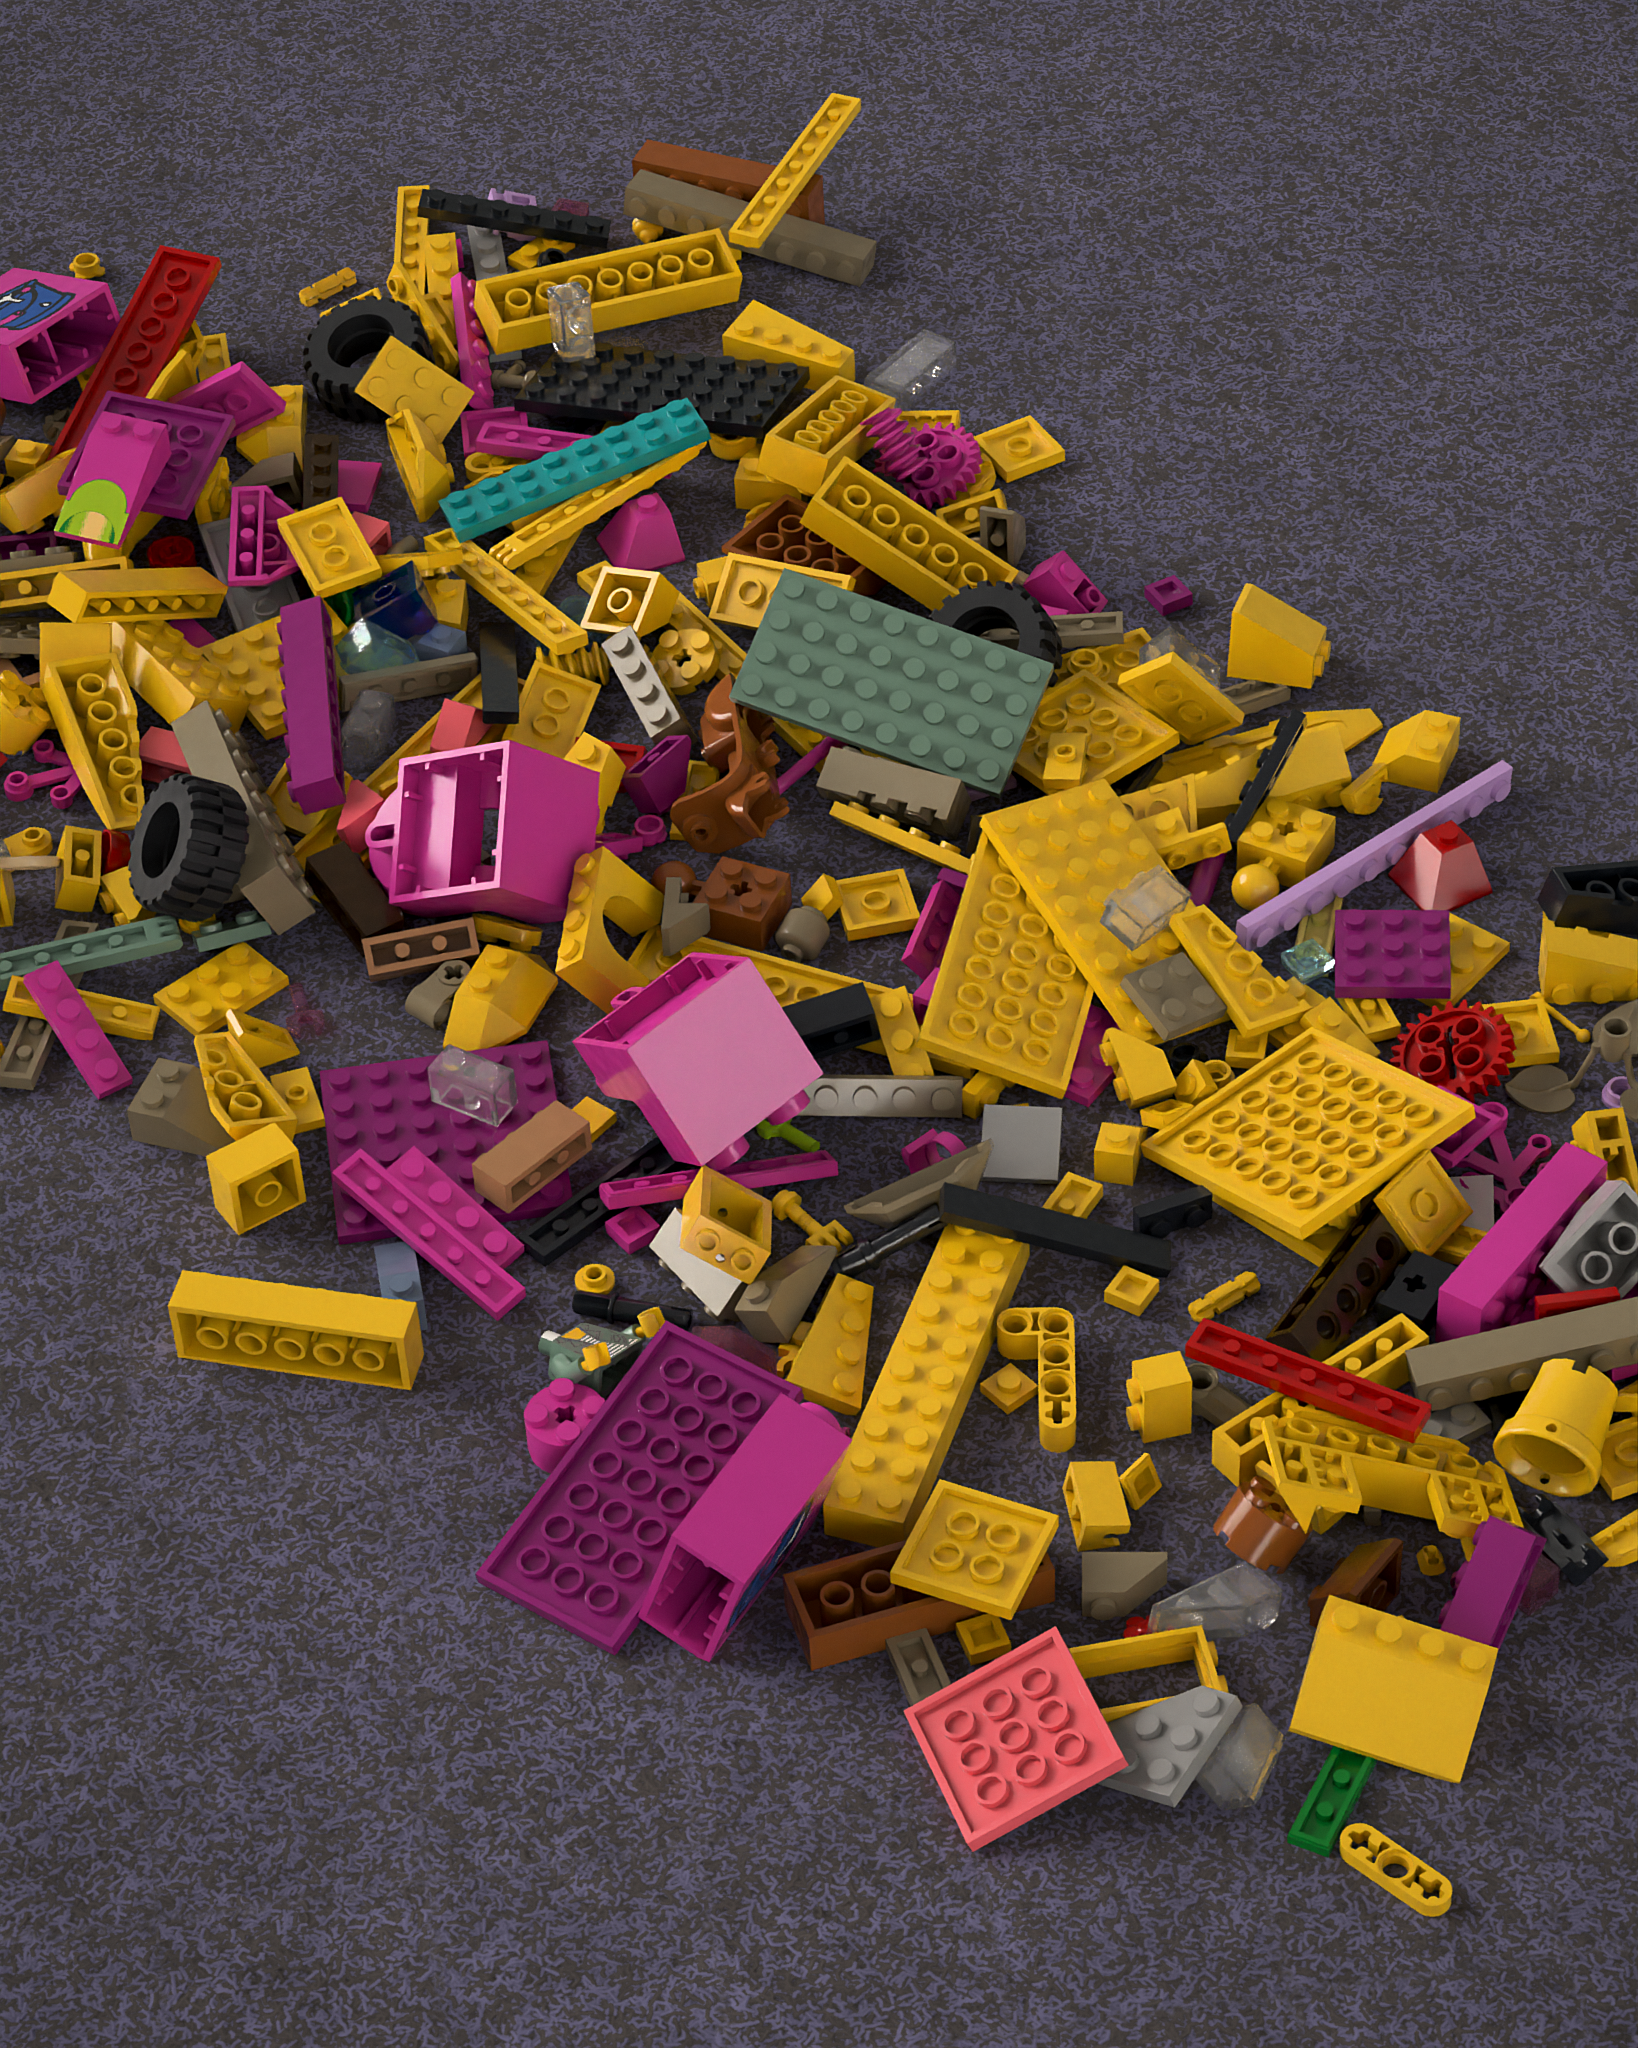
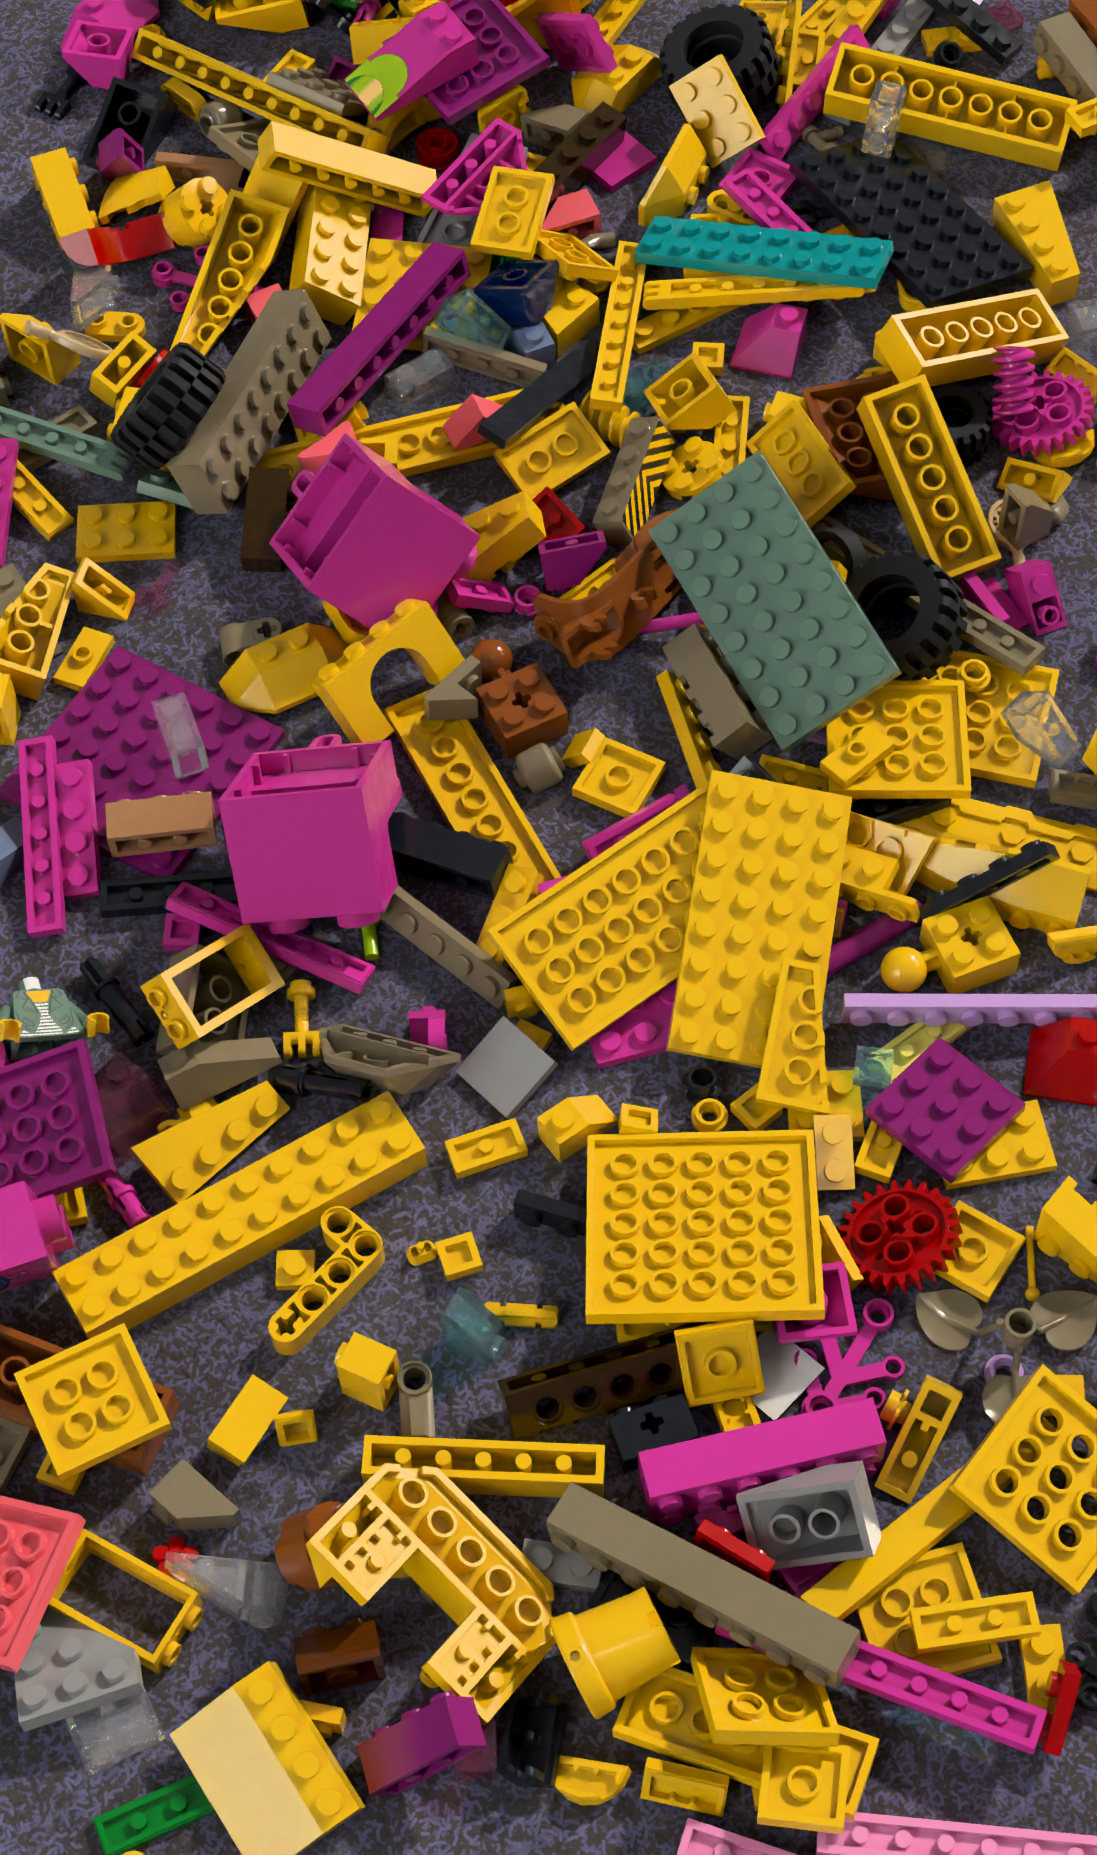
camera: 40 degrees right, 15 degrees up
(420, 949) = (266, 594): medium nougat brick -> none
(602, 1285) = (120, 963): yellow plate -> none
(1054, 1230) = (436, 1167): black tile -> none
(1095, 1312) = (421, 1253): none -> yellow rock
(1139, 1069) = (648, 1068): yellow slope -> none
(1144, 906) = (766, 935): clear brick -> none
(1173, 996) = (726, 1027): dark tan plate -> none
(1181, 698) = (997, 762): yellow plate -> none
(1194, 1083) = (680, 1113): yellow plate -> none
(1196, 1303) = (471, 1329): none -> clear light blue slope
(1308, 1380) = (465, 1454): red plate -> none

